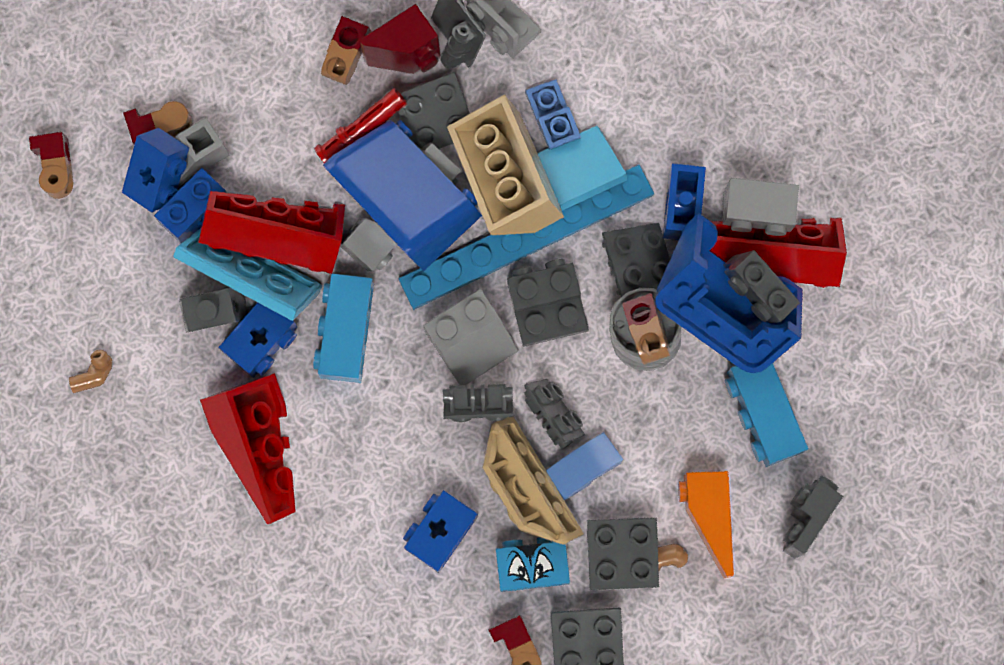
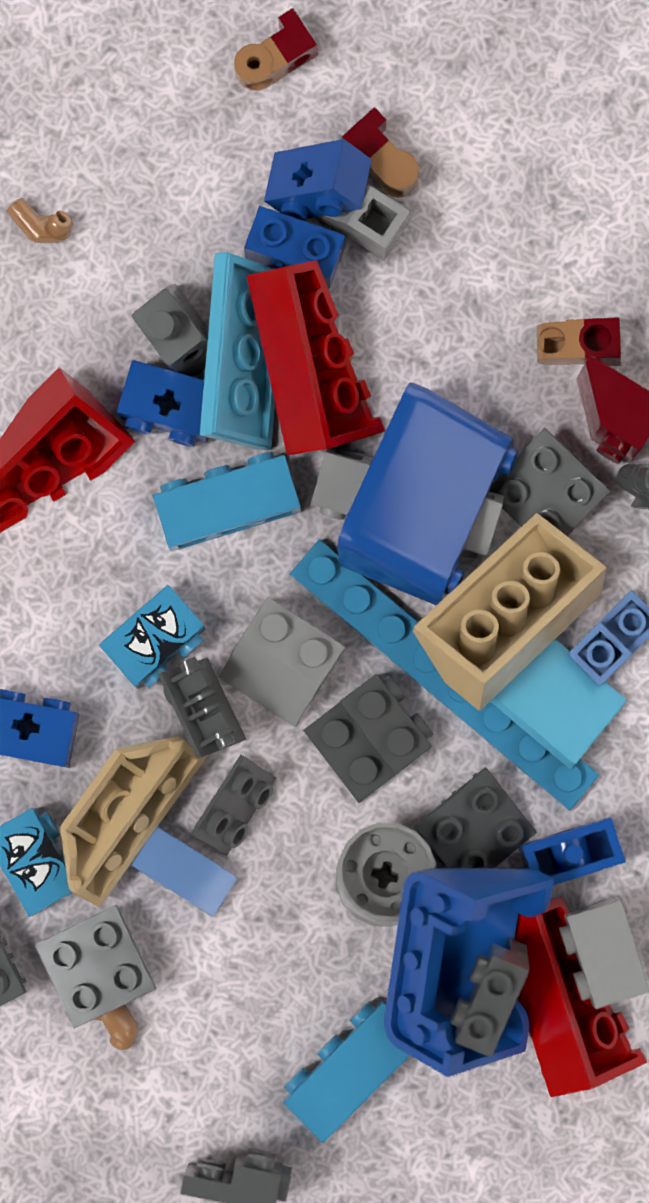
camera: 65 degrees right, 5 degrees up
(368, 121) = (494, 411): red pin -> none
(415, 418) = (154, 638): none -> dark azure brick
(647, 329) = (375, 877): medium nougat leg -> none
(708, 507) = (197, 1050): orange slope -> none

